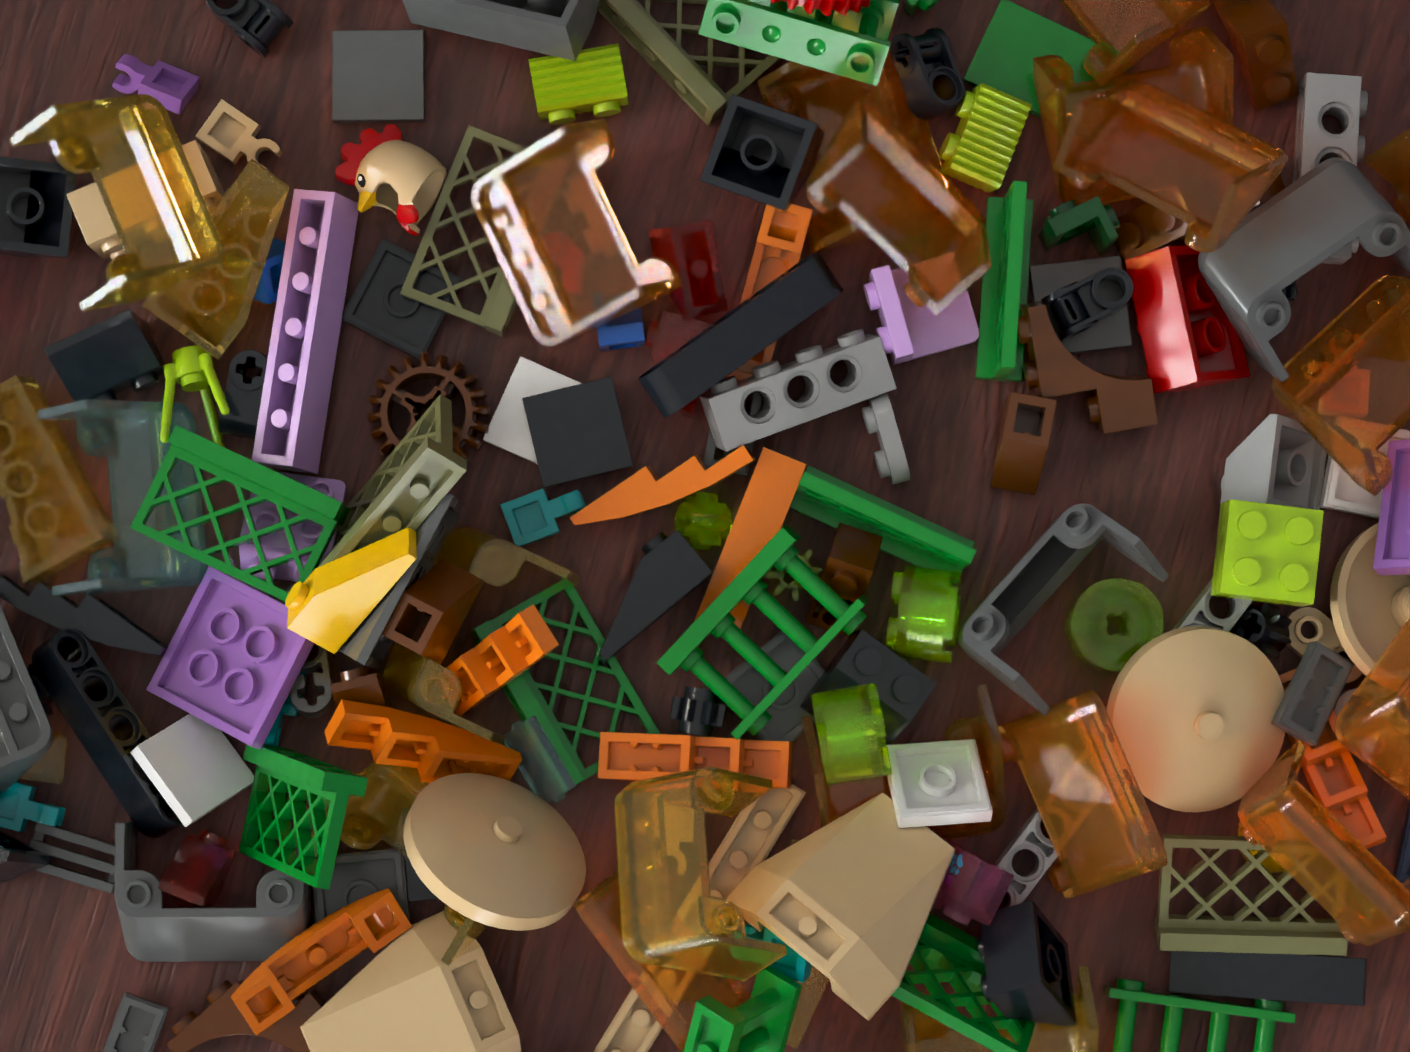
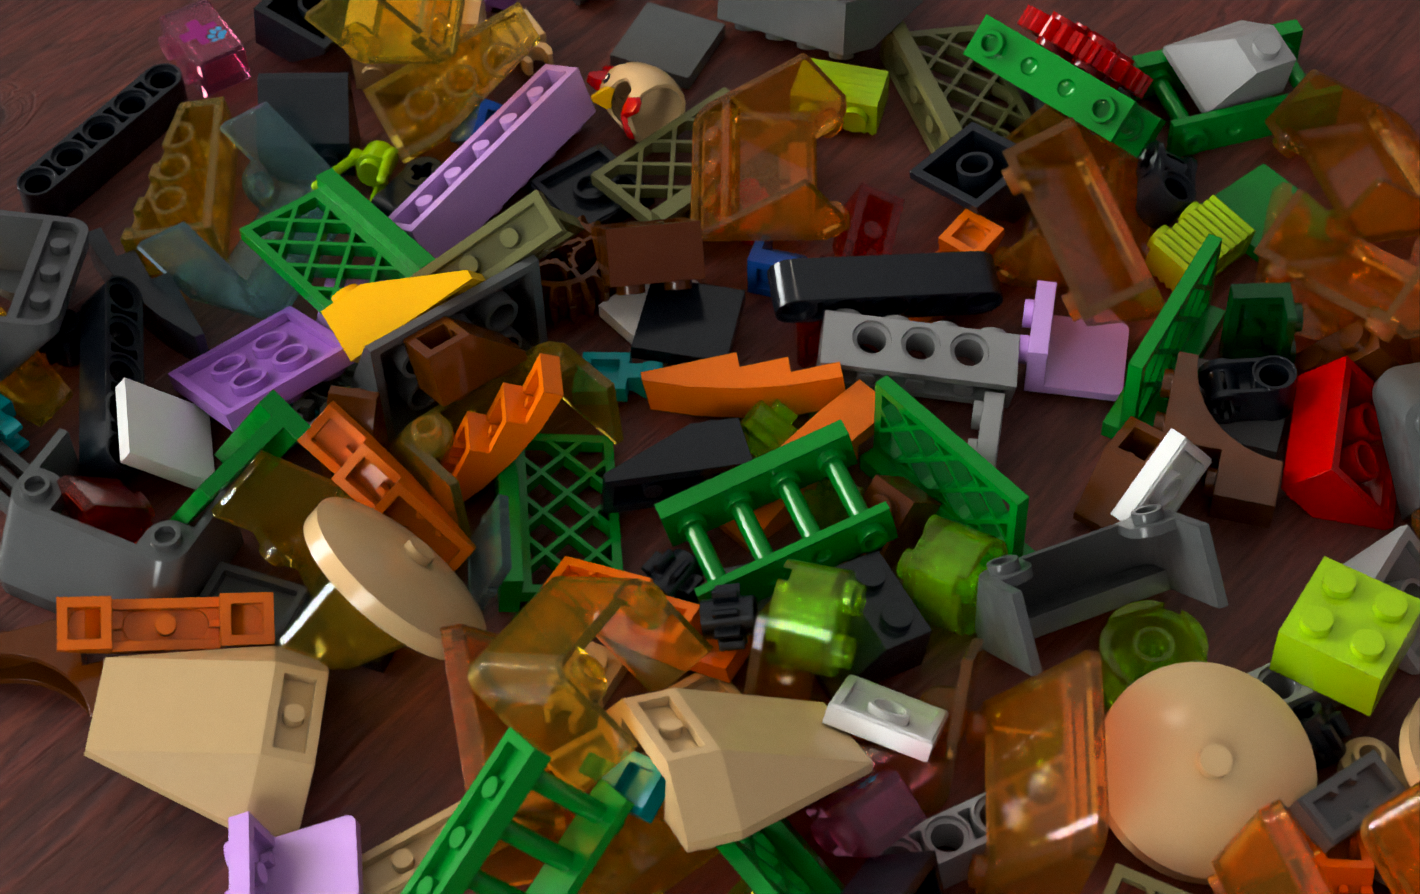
camera: 30 degrees right, 35 degrees down
(513, 387) = (649, 253): none -> reddish brown slope
(775, 752) = (728, 617): none -> black gear
(1065, 458) = (1165, 477): none -> white tile

